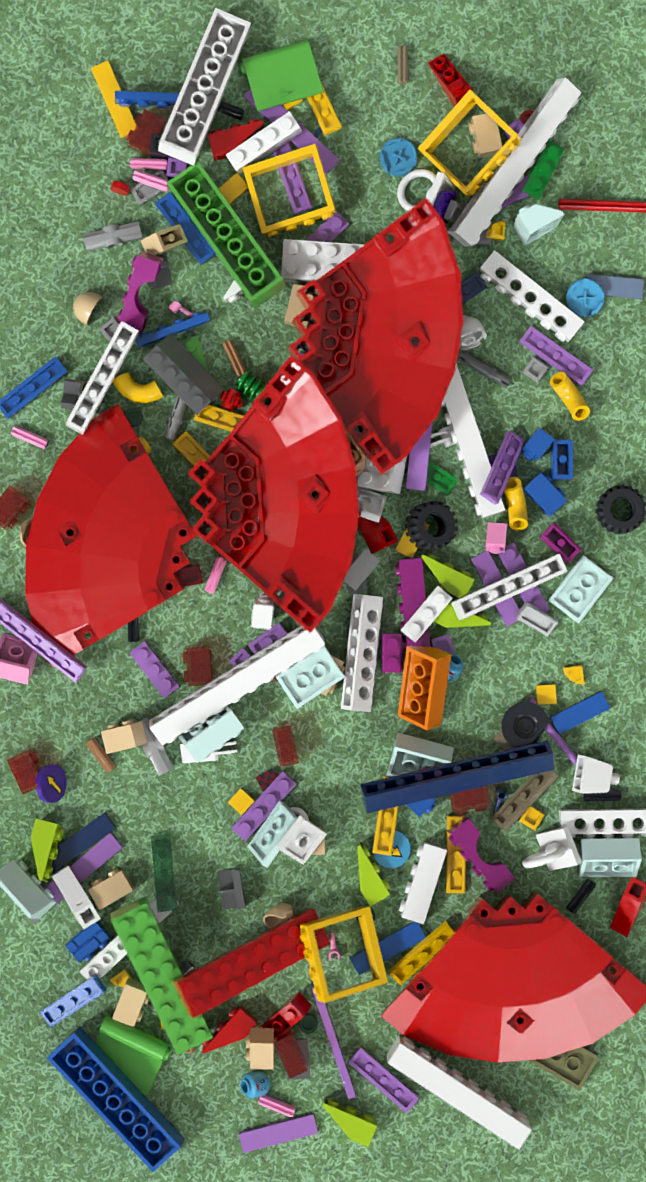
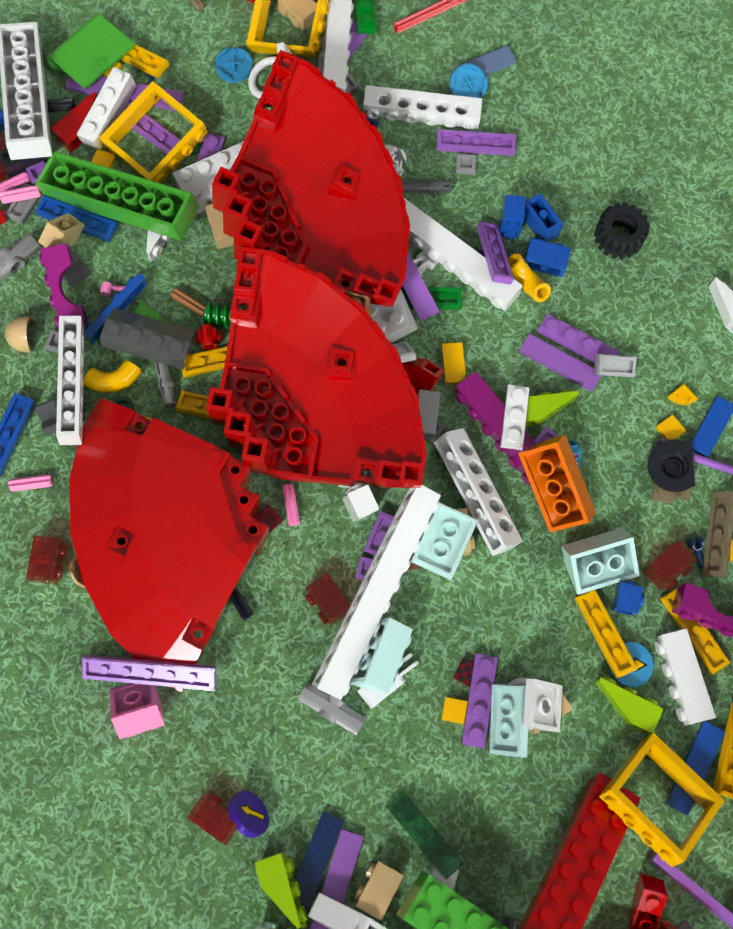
camera: 40 degrees left, 15 degrees down
(100, 755) = (283, 752): medium nougat axle -> none
(123, 737) = (296, 716): tan brick -> none
(154, 669) = (286, 632): medium lavender plate -> none
(231, 889) = (502, 808): dark grey panel -> none
(278, 914) = (567, 803): tan helmet -> none
(285, 745) = (463, 625): clear red brick -> none
(308, 1023) = (674, 903): dark green tile -> none
(333, 946) = (644, 805): bright pink hand -> none
(391, 653) = (505, 475): magenta brick -> none
(417, 529) = (471, 327): black tyre -> none
(452, 581) = (505, 374): lime slope -> none
(457, 776) = (646, 550): dark blue brick -> none
(496, 231) = (357, 75): yellow tile -> none
(496, 537) = (530, 316): bright pink brick -> none
(509, 587) = (573, 347): white brick -> none
(535, 222) = (387, 40): light aqua slope -> none
(560, 543) = (589, 288): magenta brick -> none
(570, 396) = (510, 165): yellow cylinder -> none
(580, 589) = (634, 320): light aqua tile -> none

